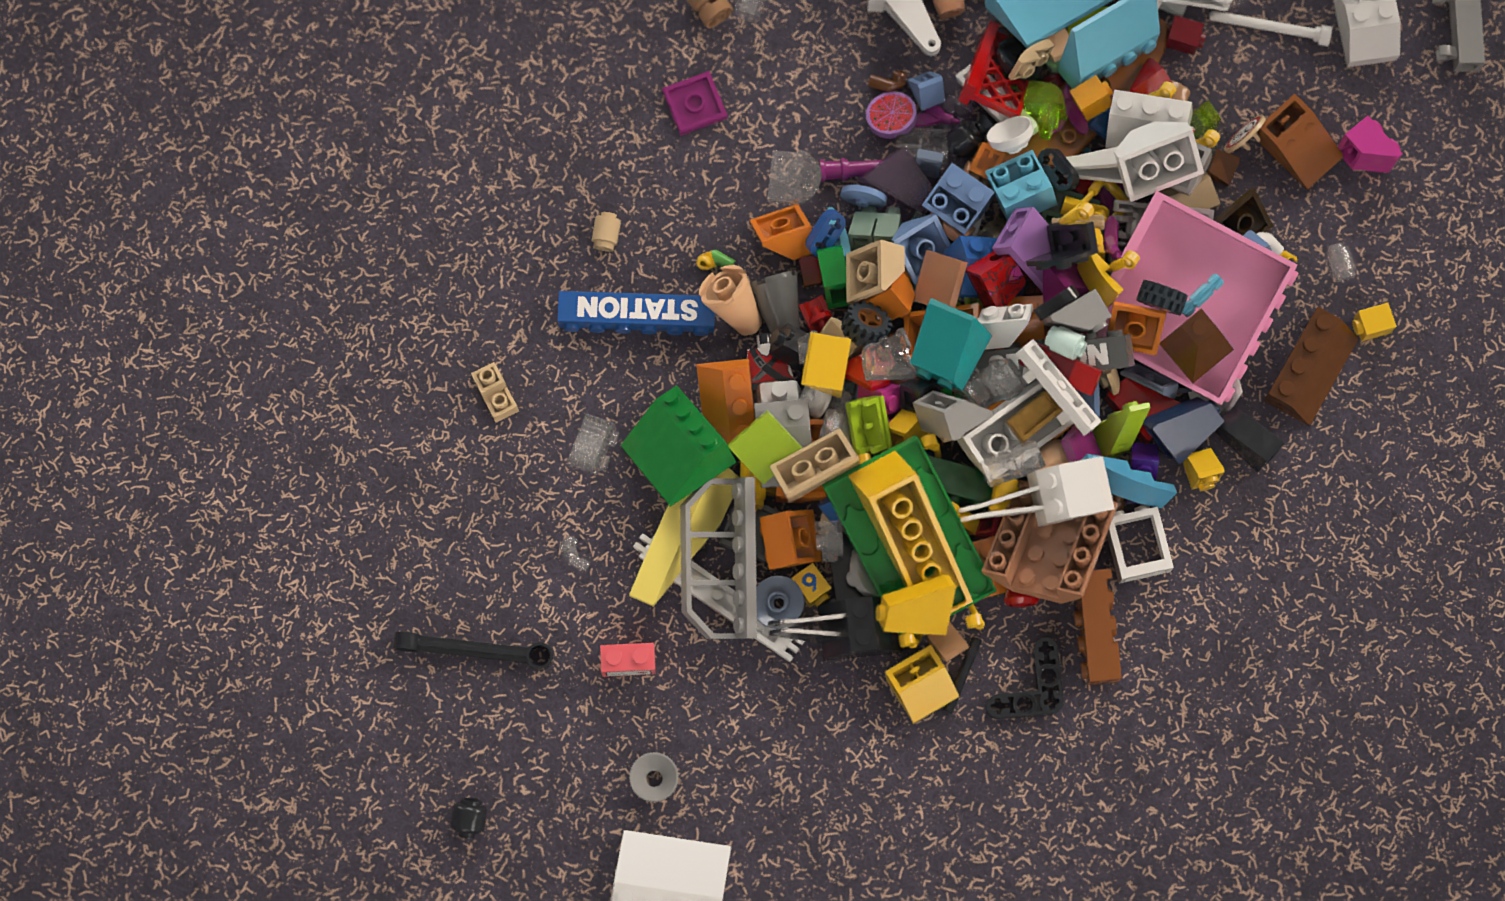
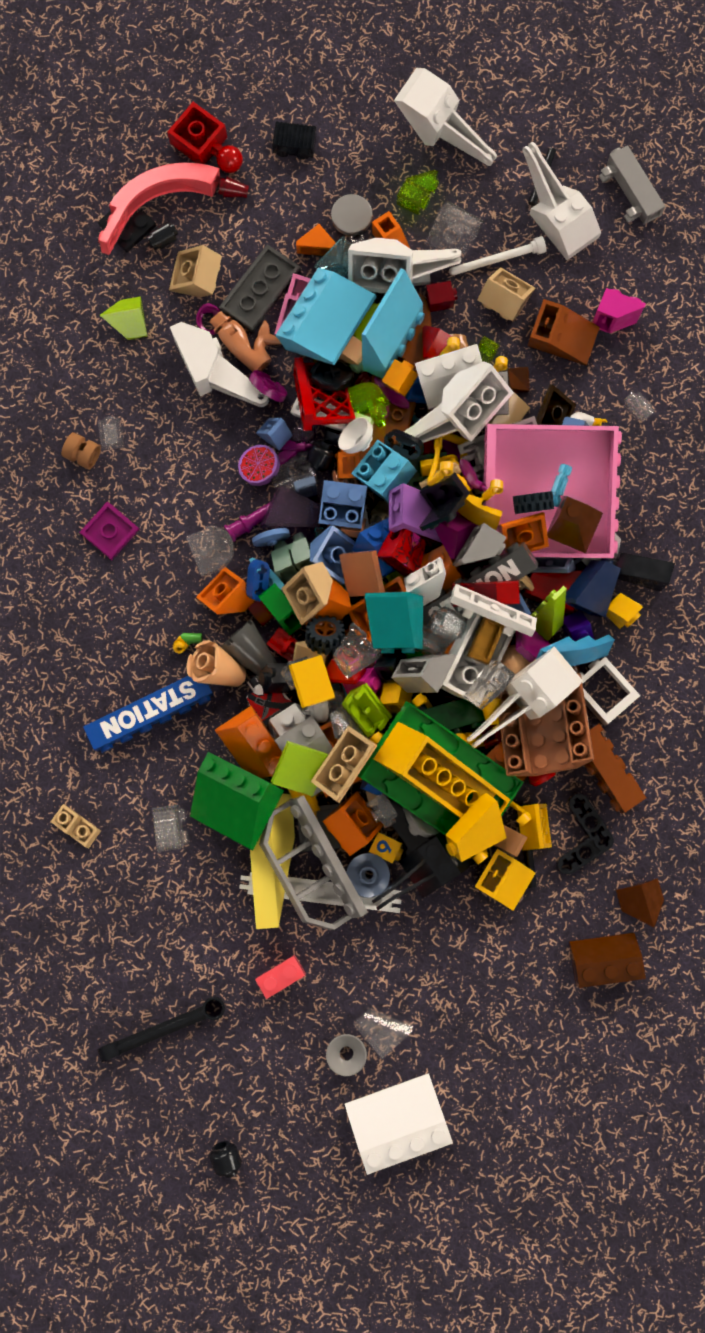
camera: 25 degrees left, 5 degrees up
(571, 556) = (196, 919): clear arm -> none
(606, 231) = (94, 662): tan brick -> none
(704, 774) = (381, 1031): none -> clear slope
(888, 85) = (245, 443): reddish brown arm -> none
(943, 34) = (266, 386): none -> magenta tile
(985, 648) = (537, 828): none -> yellow slope
(986, 829) = (606, 960): none -> reddish brown slope
(1033, 56) = (341, 369): tan slope -> none
(1056, 302) = (458, 546): black beam -> none
(1059, 786) = (642, 901): none -> reddish brown slope
(1066, 342) = (481, 573): light aqua brick -> none
(1244, 134) = (522, 347): piece -> none
(1258, 68) = (505, 294): none -> tan slope
(1312, 366) = (658, 493): reddish brown slope -> none
(1374, 322) = (685, 438): yellow brick -> none

